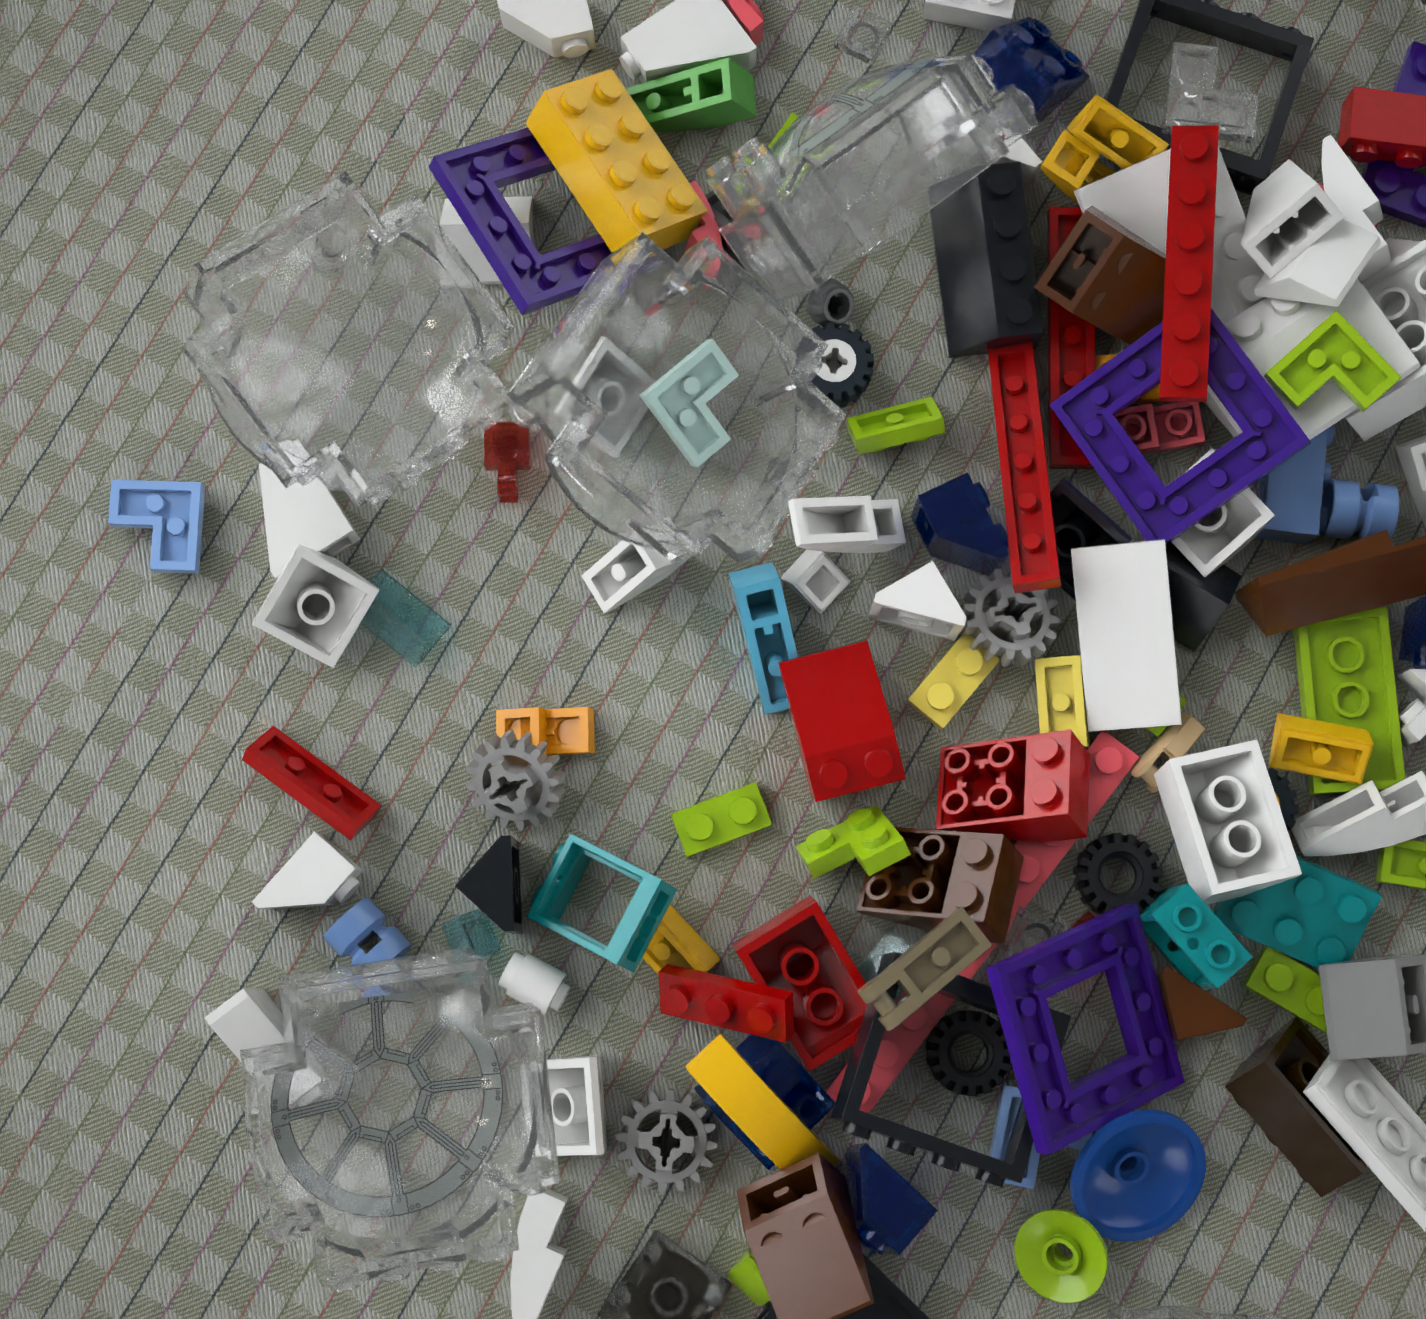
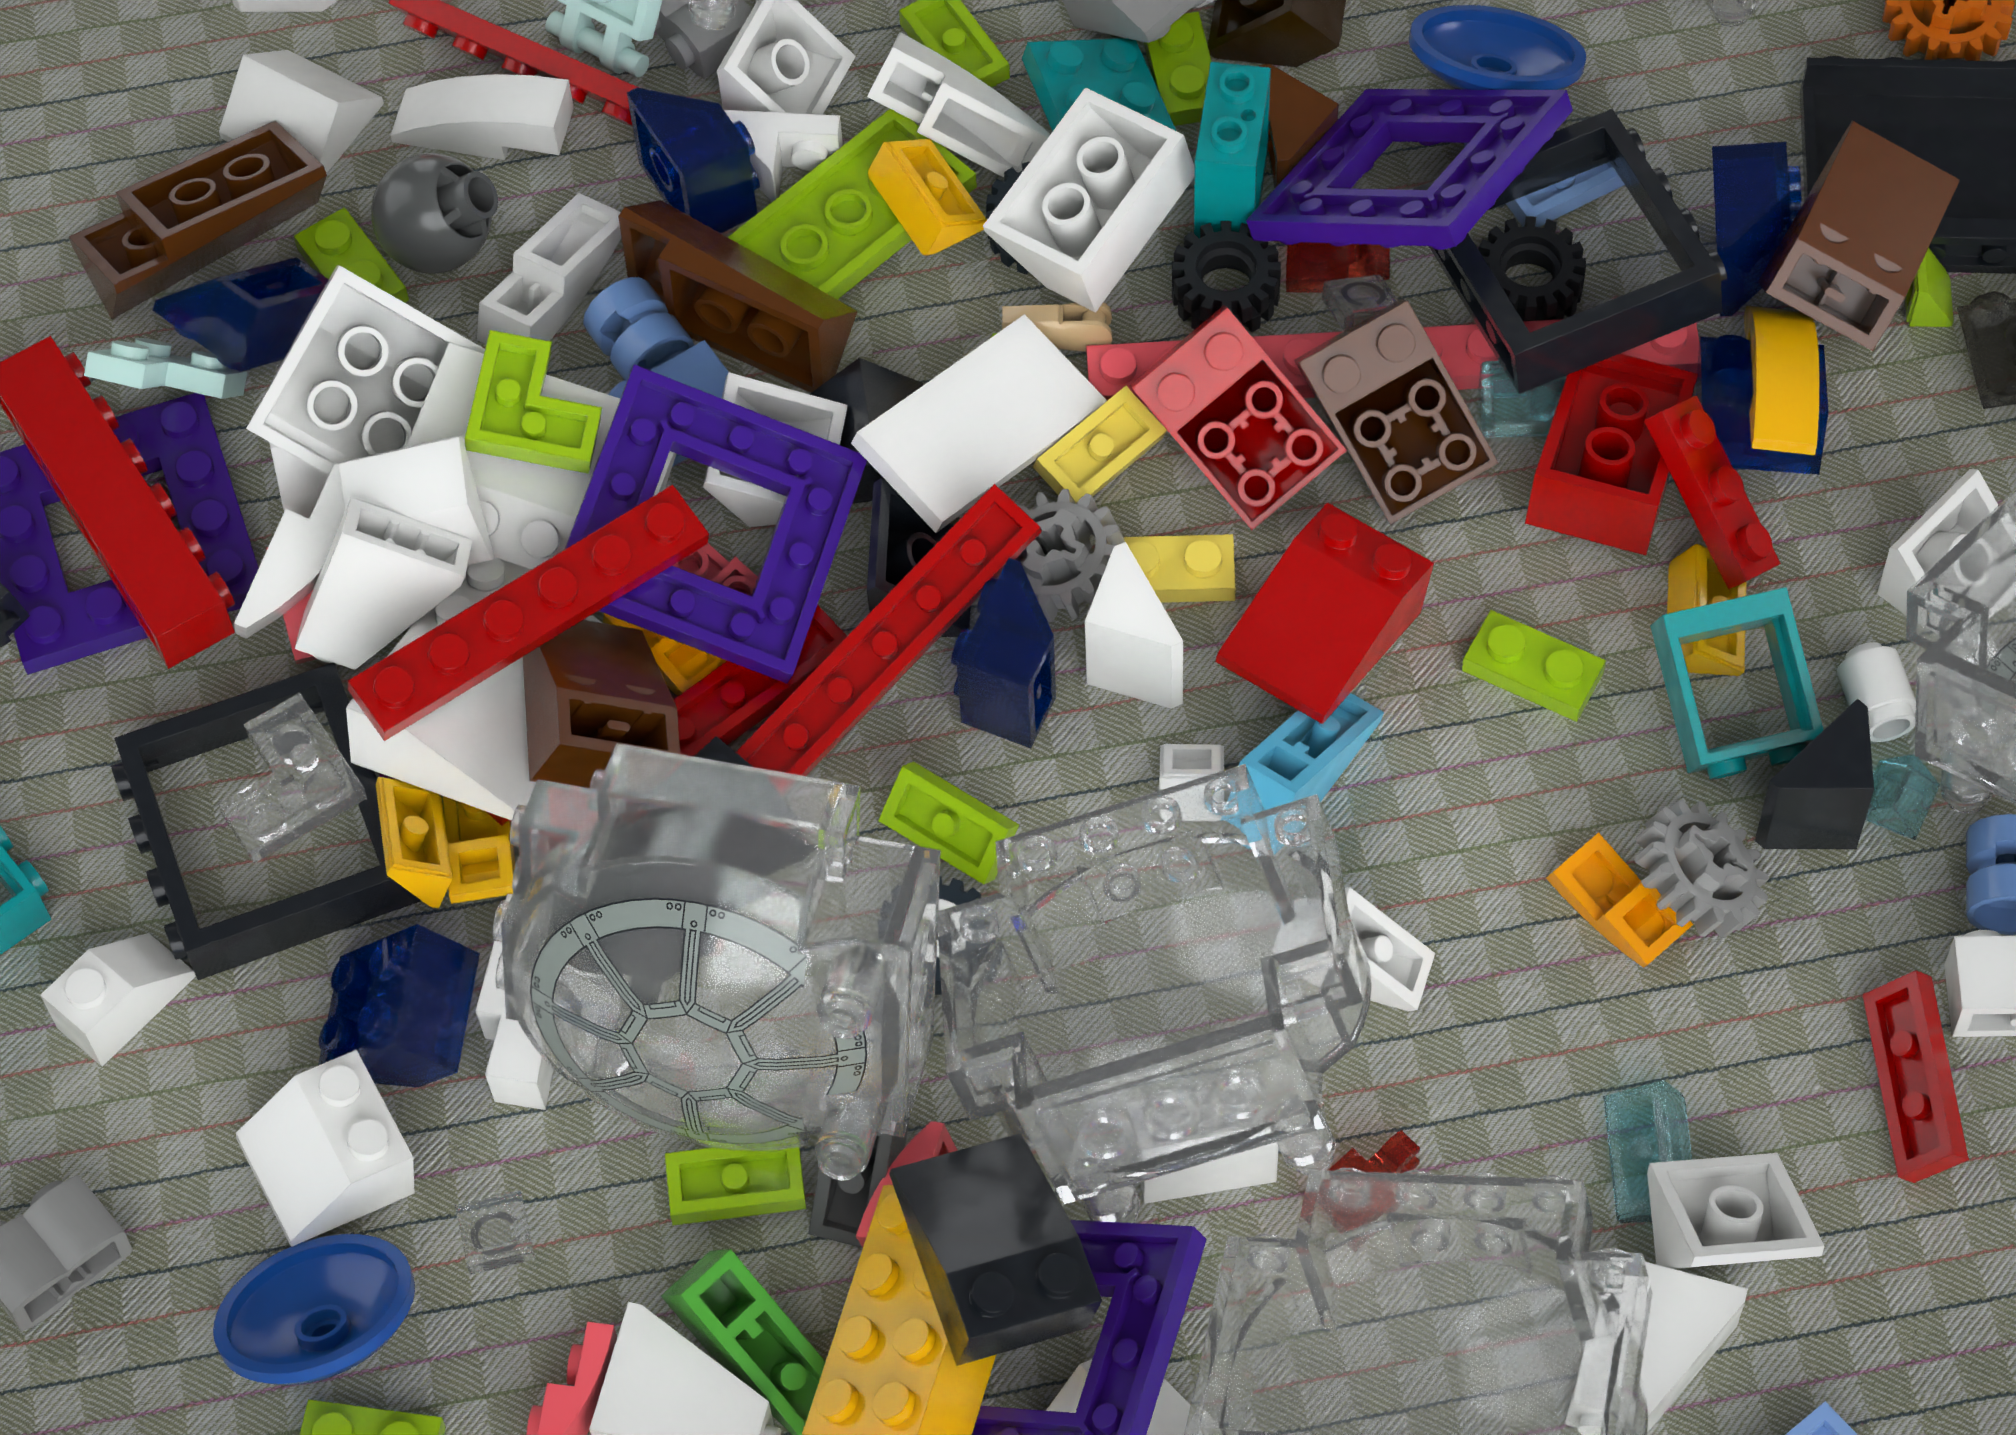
camera: 130 degrees left, 20 degrees down
(601, 194) = (995, 1248): none -> black slope
(644, 1139) = (1893, 455): light grey gear -> none
(681, 399) = (1140, 1019): light aqua plate -> none
(847, 524) = (1112, 753): white slope -> none
(862, 836) = (1422, 513): lime plate -> none
(926, 967) = (1507, 308): dark tan plate -> none
(1048, 1269) = (1634, 63): lime dish -> none

